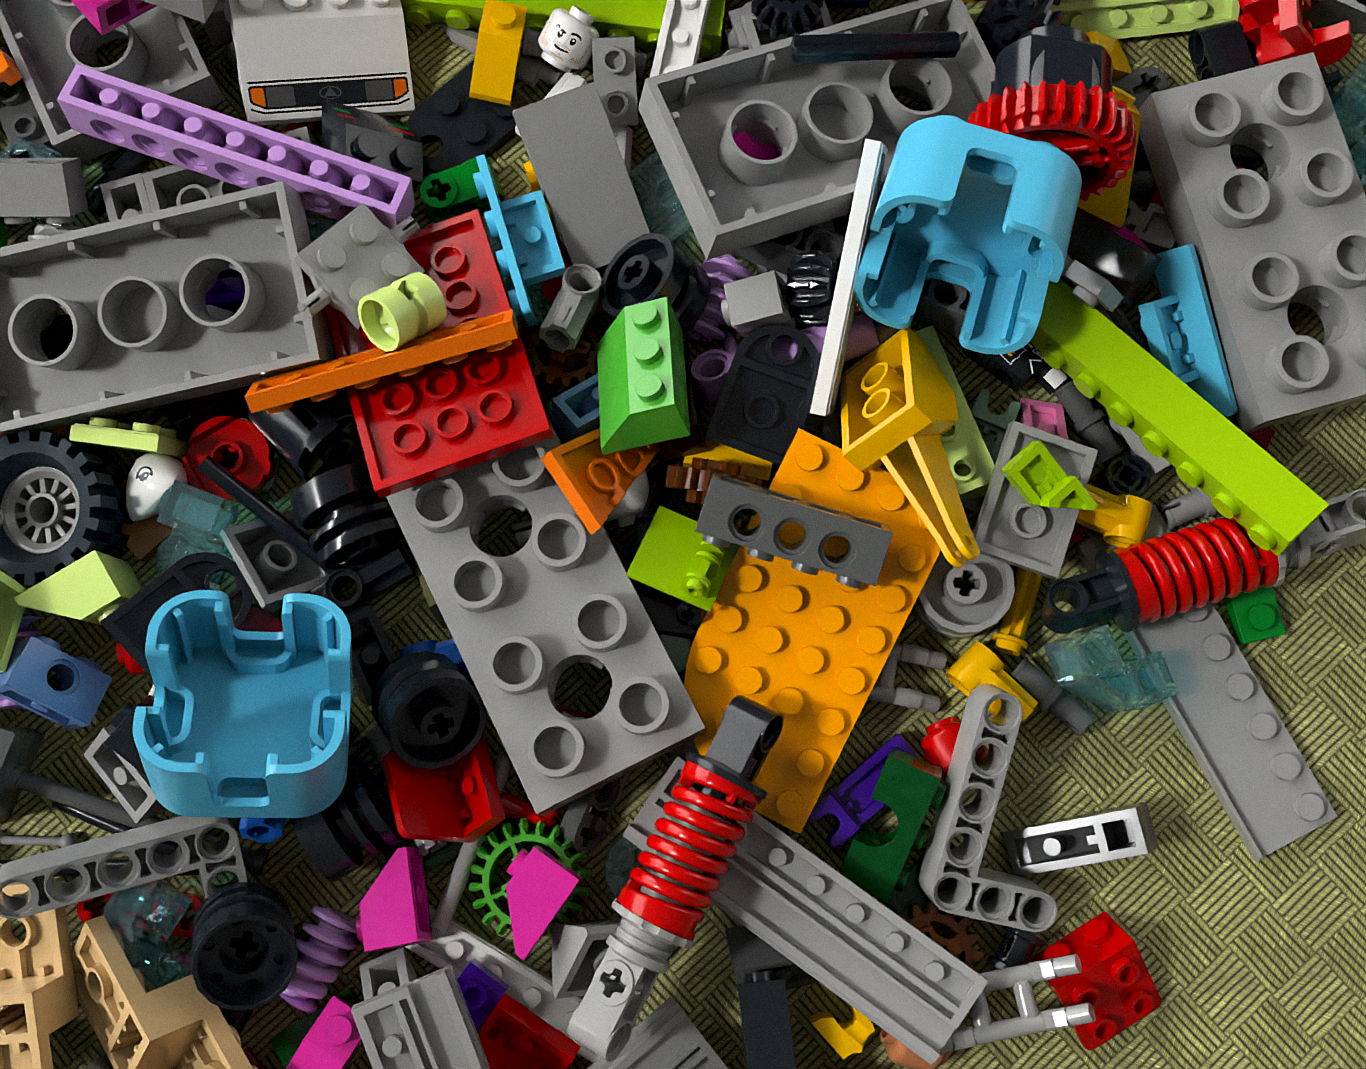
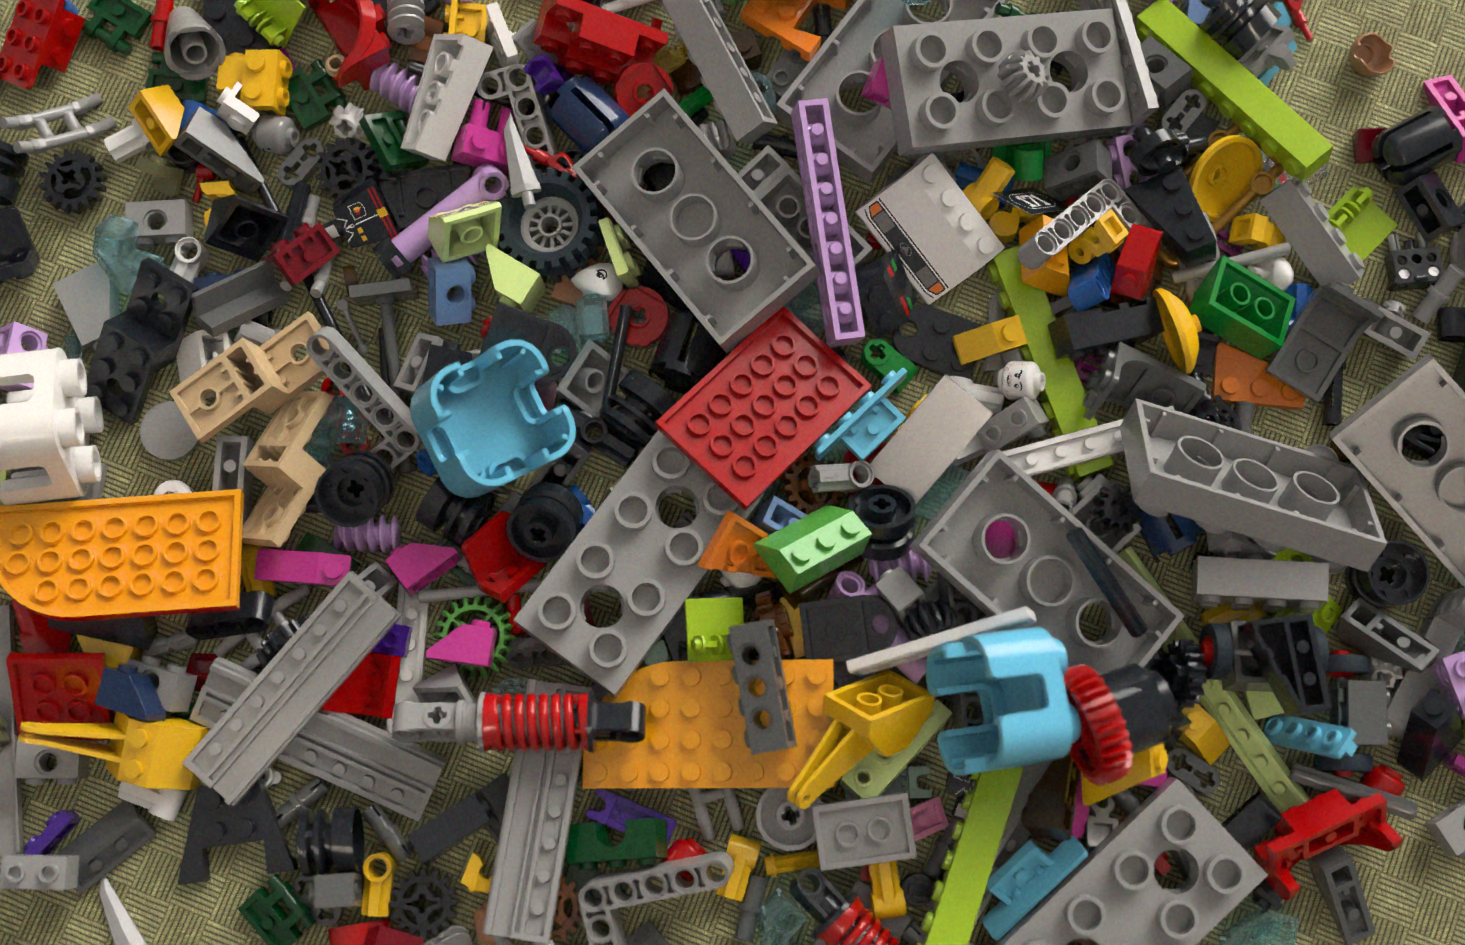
camera: 60 degrees right, 0 degrees up
(355, 261) = (790, 337): light grey plate -> none
(367, 366) = (739, 384): orange plate -> none
(402, 311) = (773, 379): yellowish green wheel -> none
(1044, 482) = (876, 831): lime slope -> none
(1090, 286) = (1020, 798): light grey plate -> none

